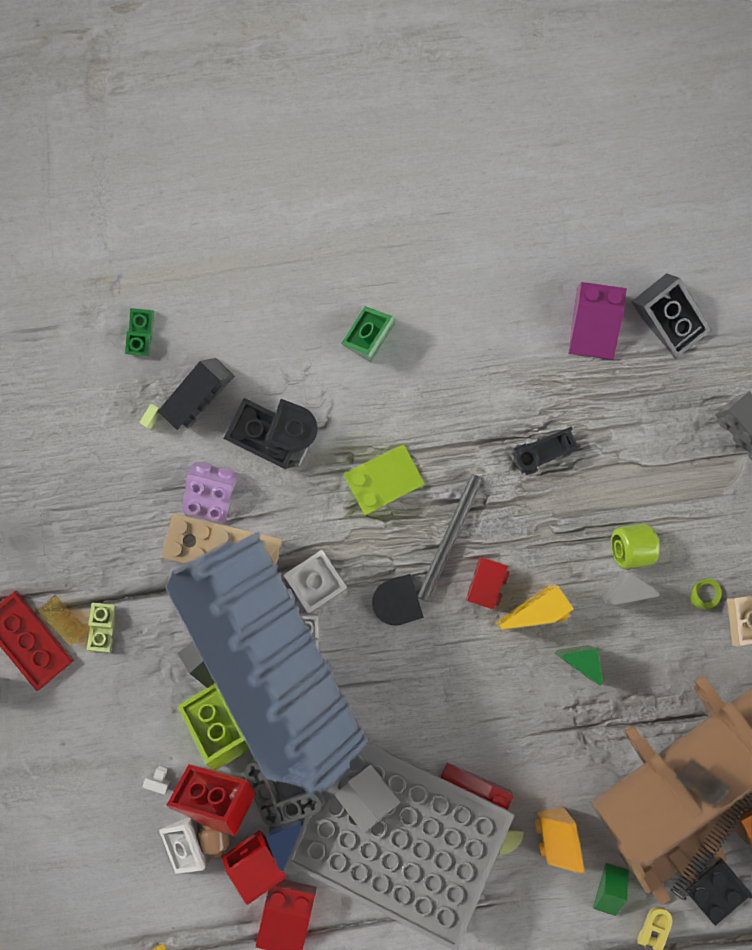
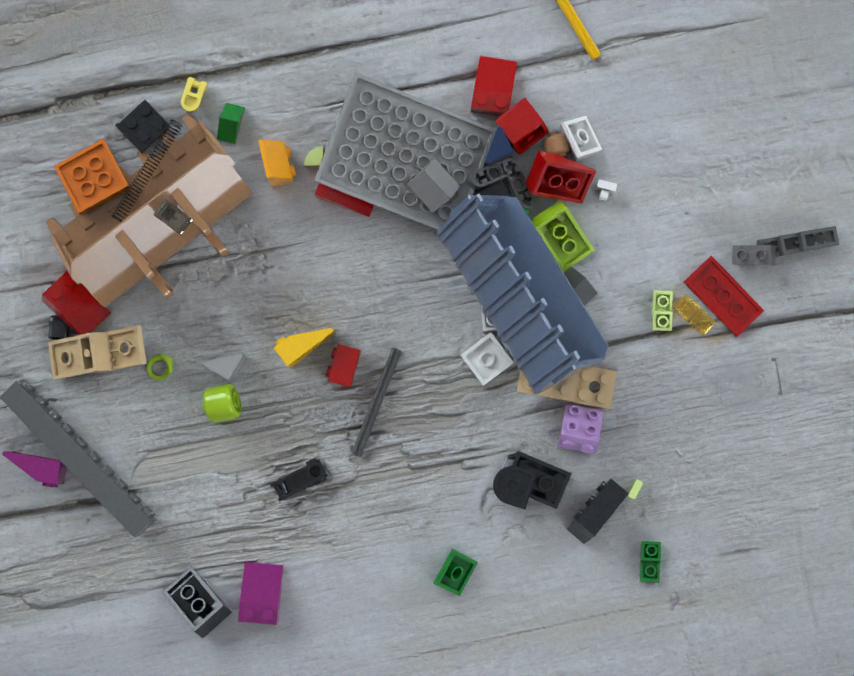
camera: 175 degrees left, 0 degrees up
(383, 479) = (434, 447): lime slope -> none
(397, 601) = (418, 346): black tile -> none
(585, 660) = (261, 306): green slope -> none

